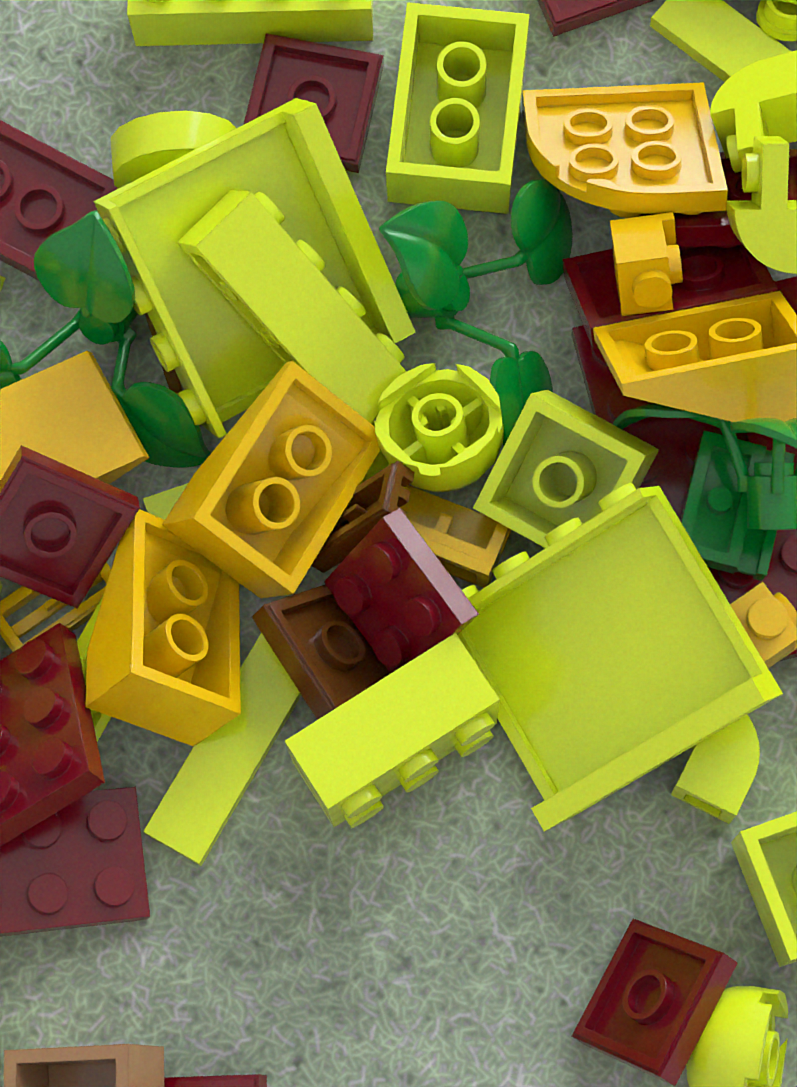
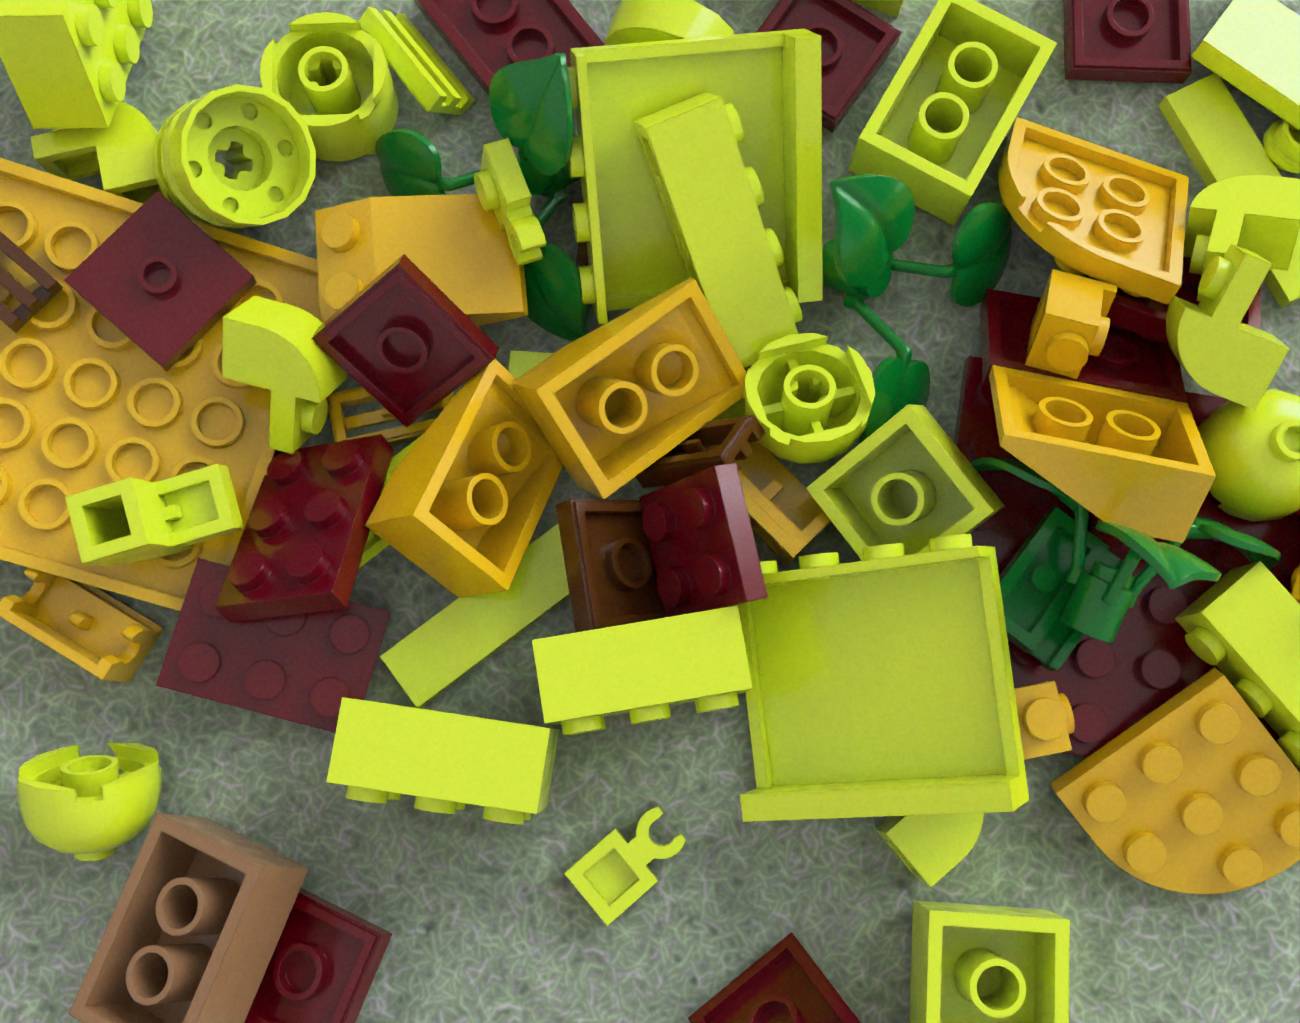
camera: 20 degrees right, 5 degrees up
(85, 353) = (504, 189): none -> neon yellow plate
(248, 887) = (442, 760): none -> neon yellow brick
(449, 930) = (617, 869): none -> neon yellow plate

